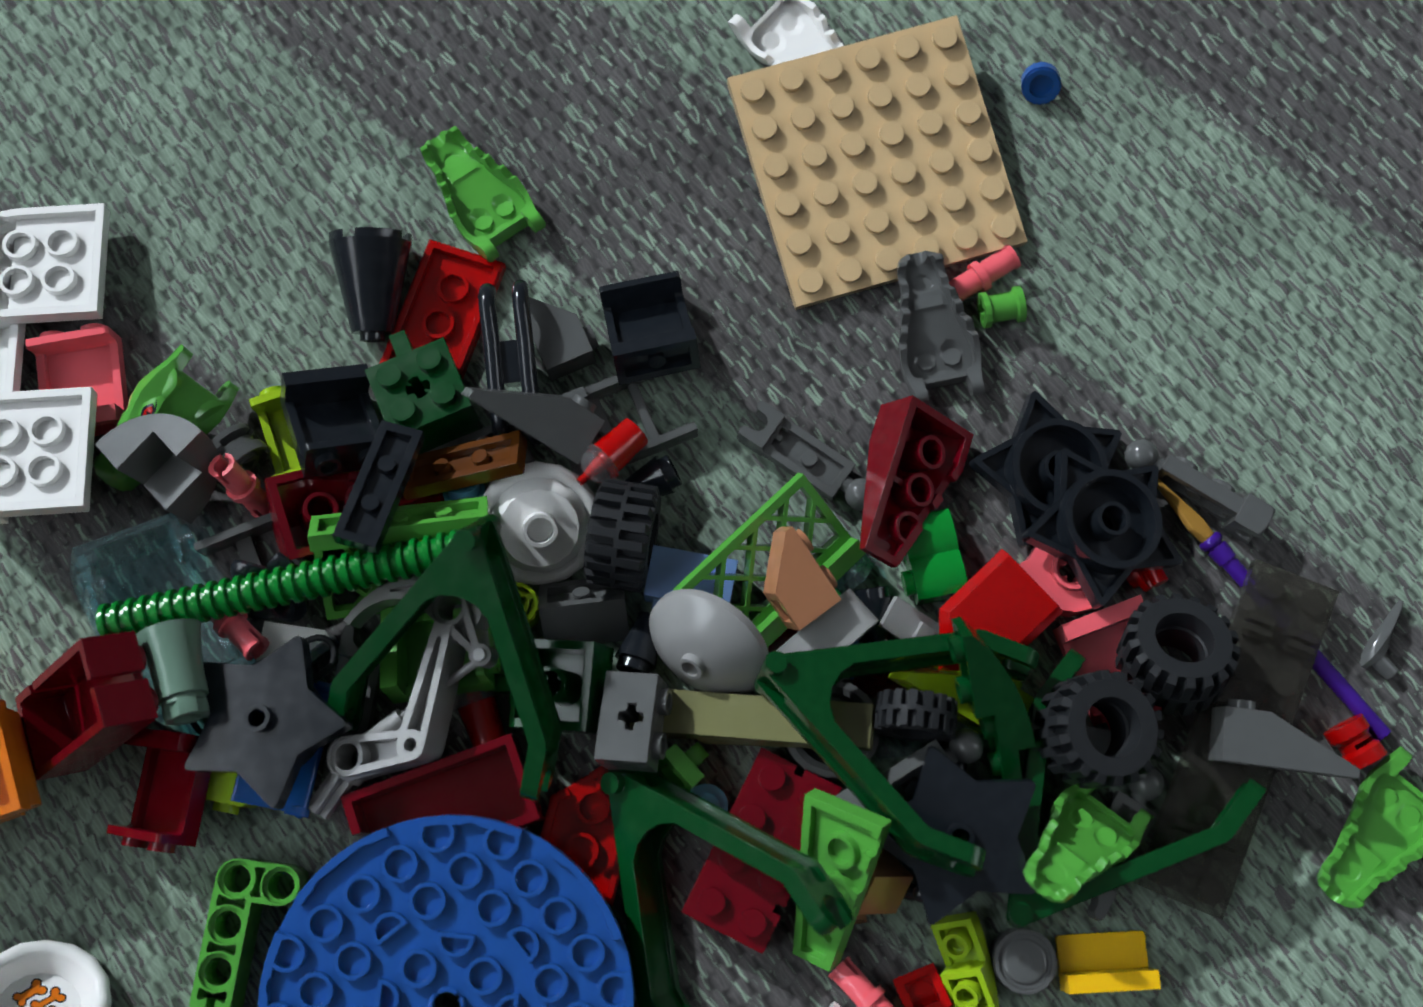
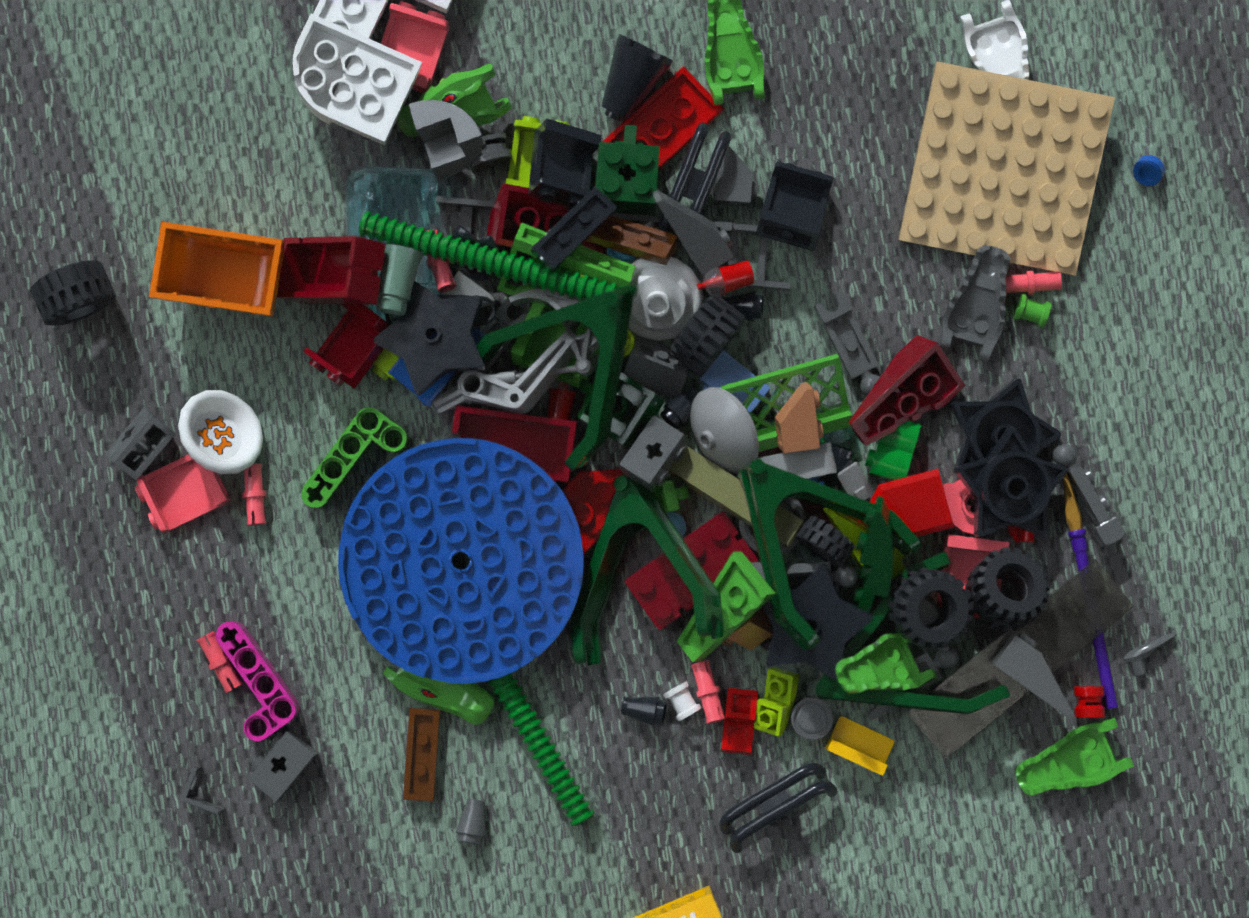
camera: 30 degrees right, 10 degrees up
(240, 484) = (485, 176): coral pin -> none

